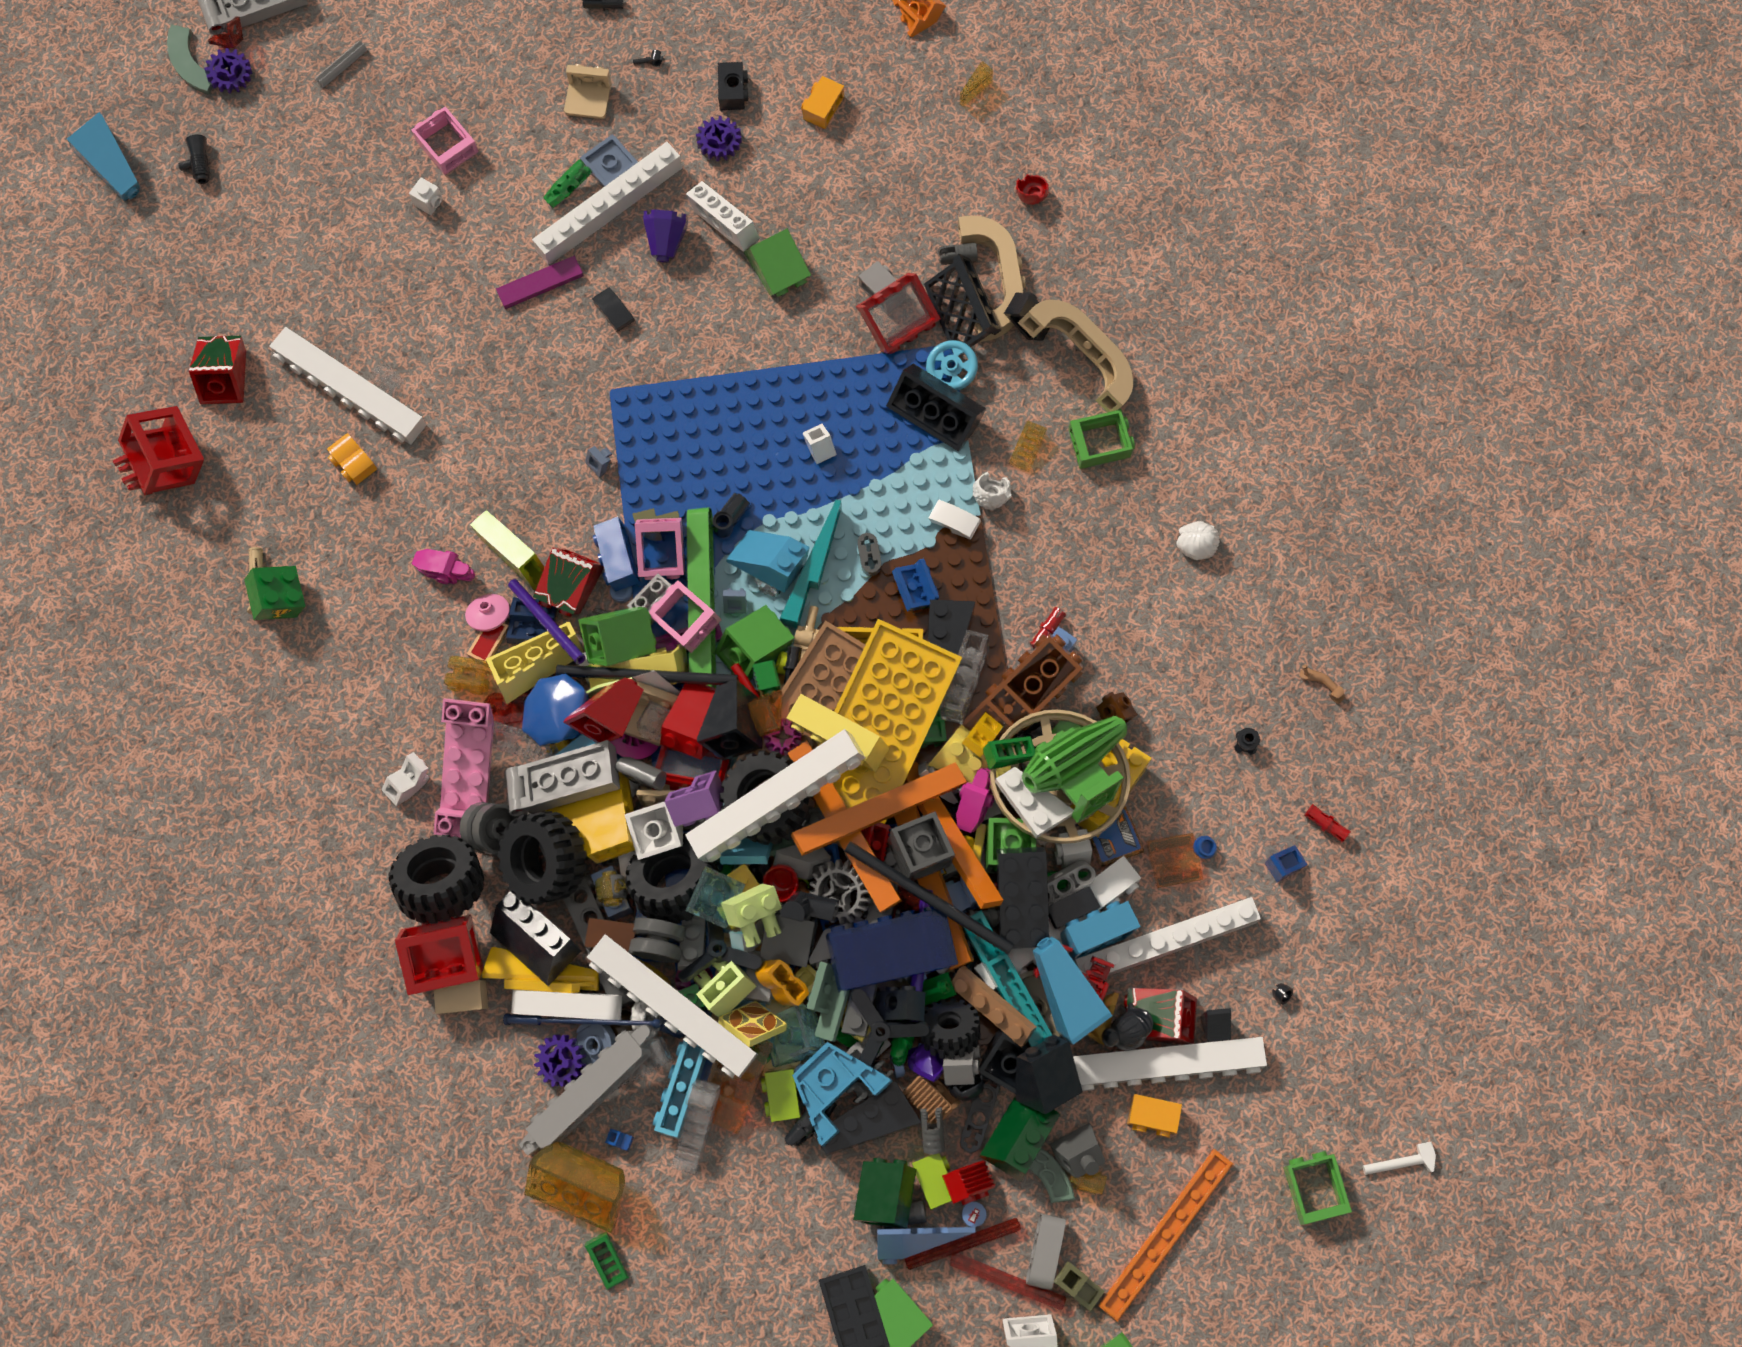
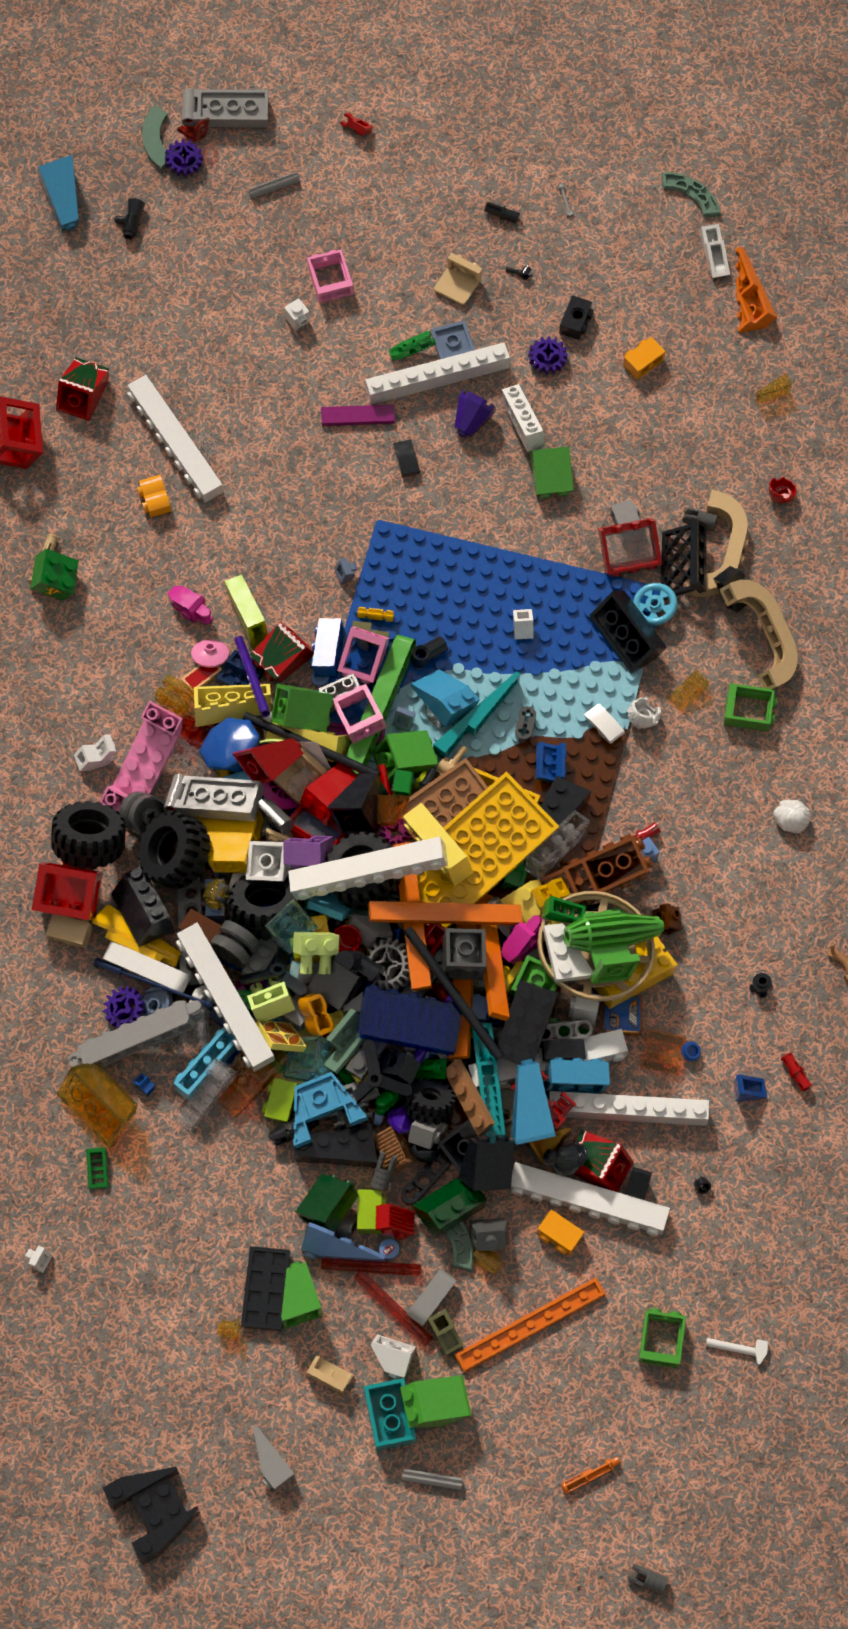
camera: 20 degrees right, 5 degrees down
(653, 496) = (375, 614): none -> yellow axle

